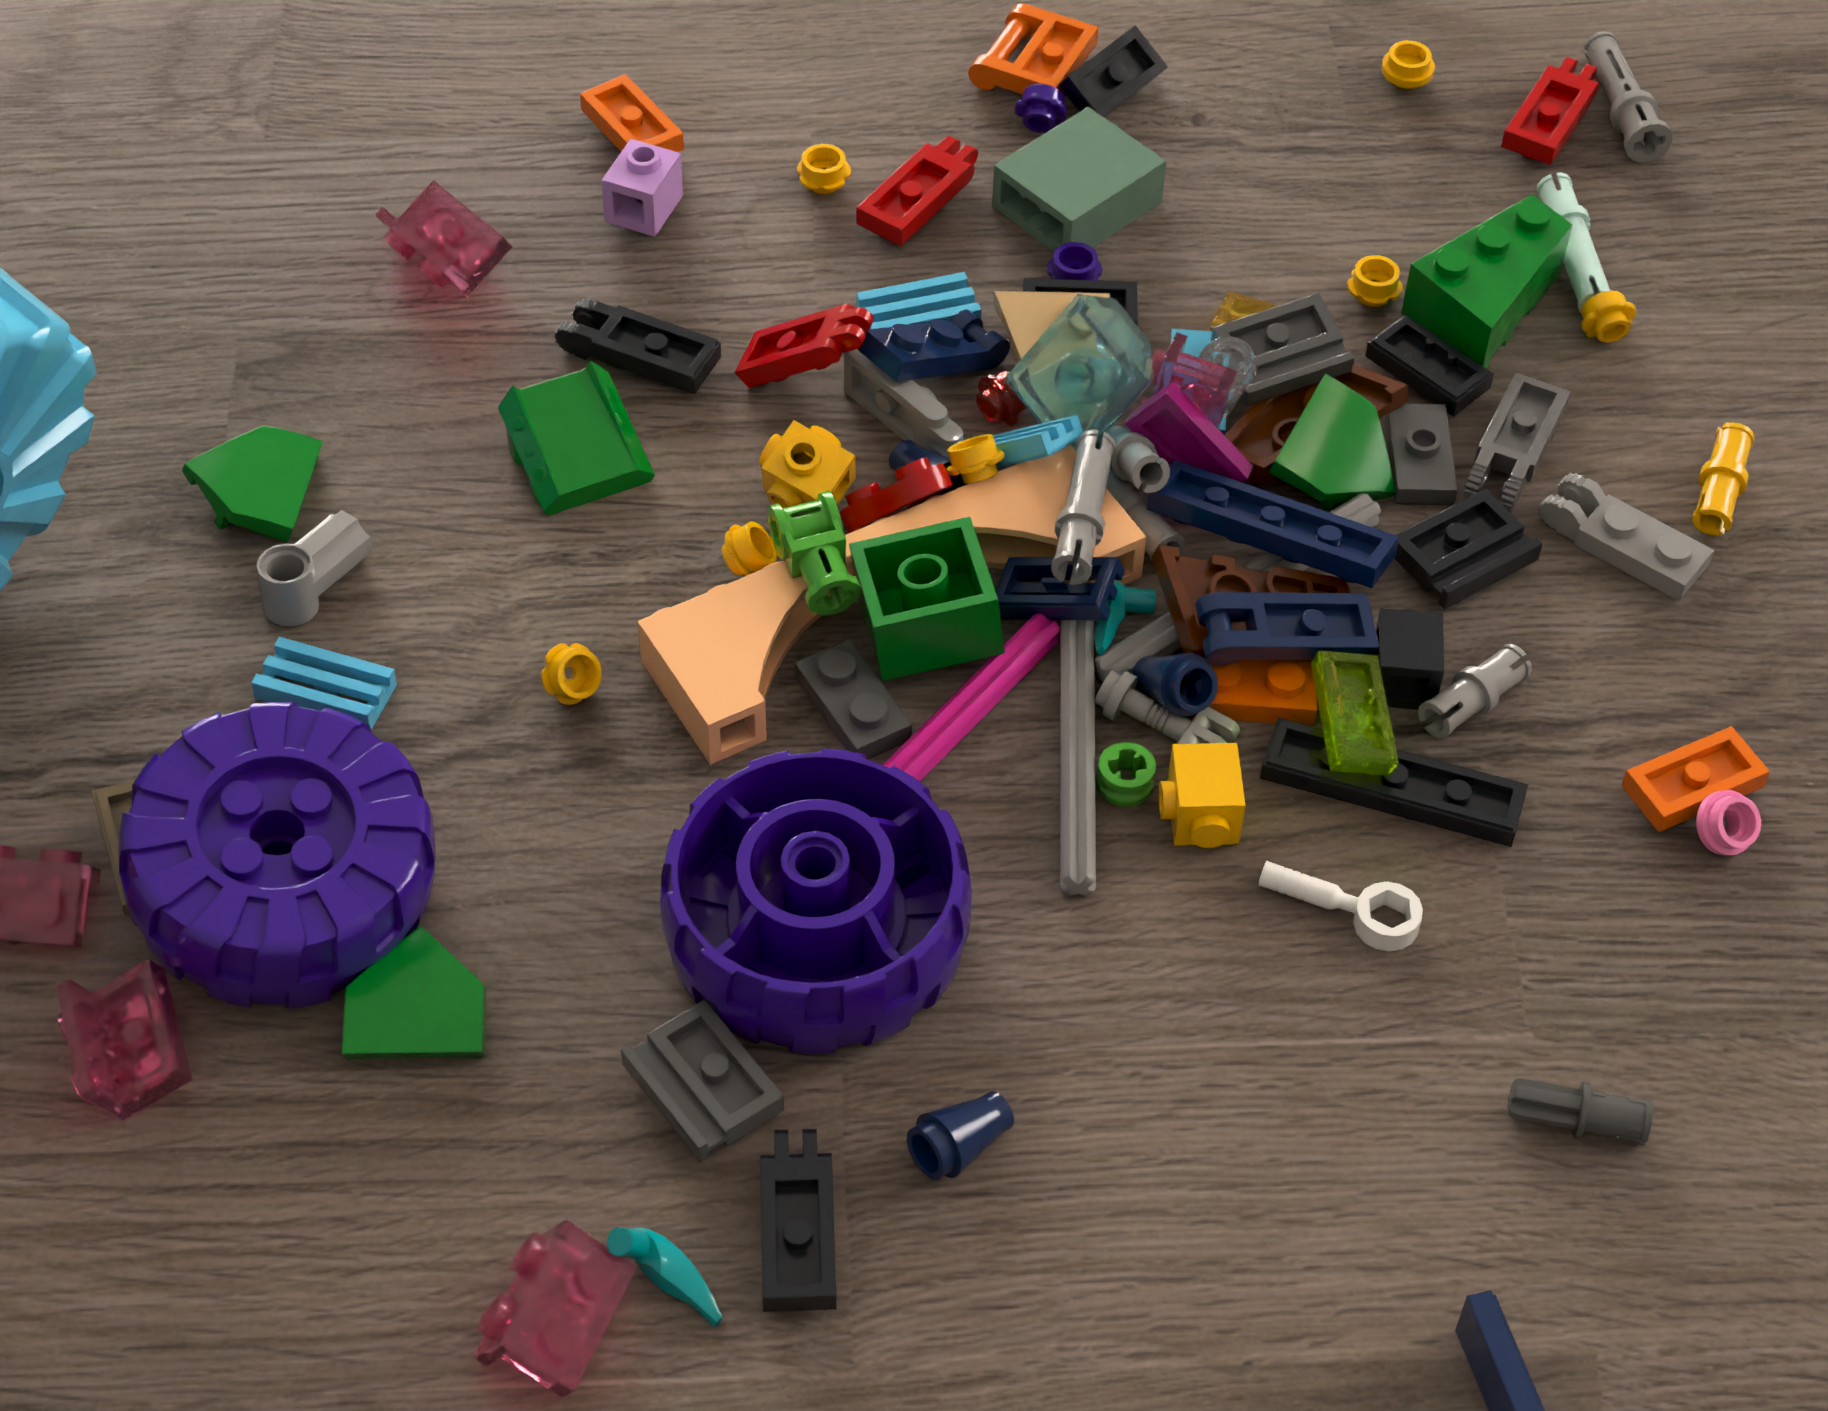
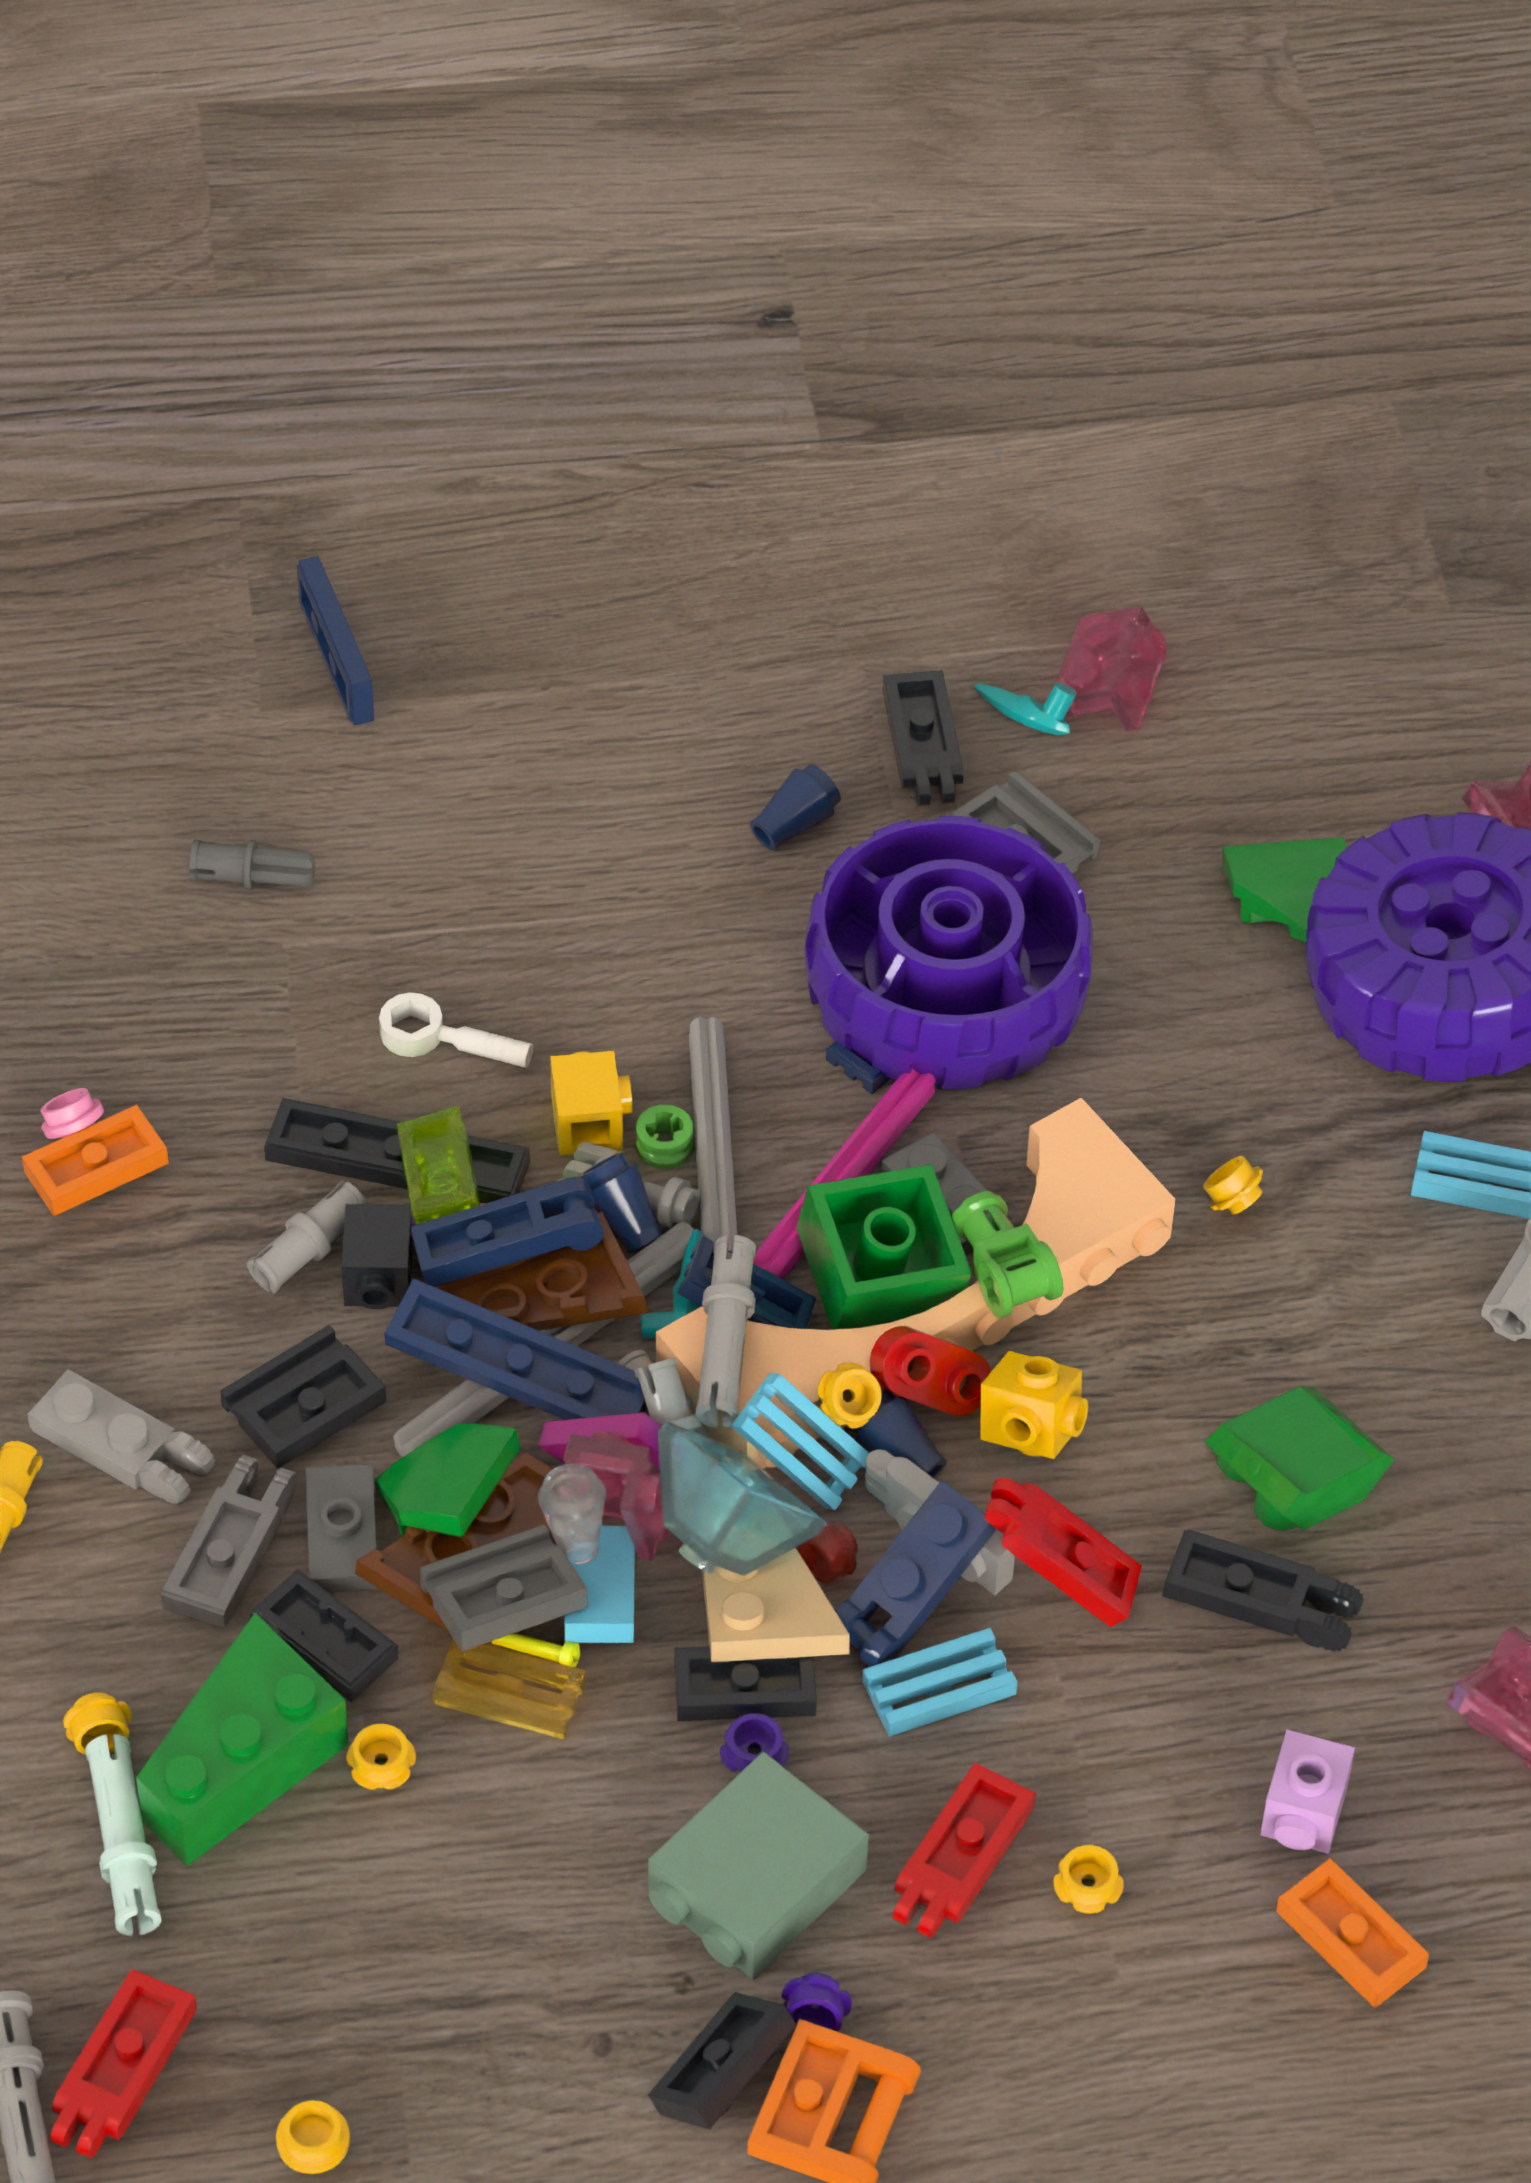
camera: 175 degrees right, 0 degrees up
(748, 549) = (1080, 1332): yellow plate -> none

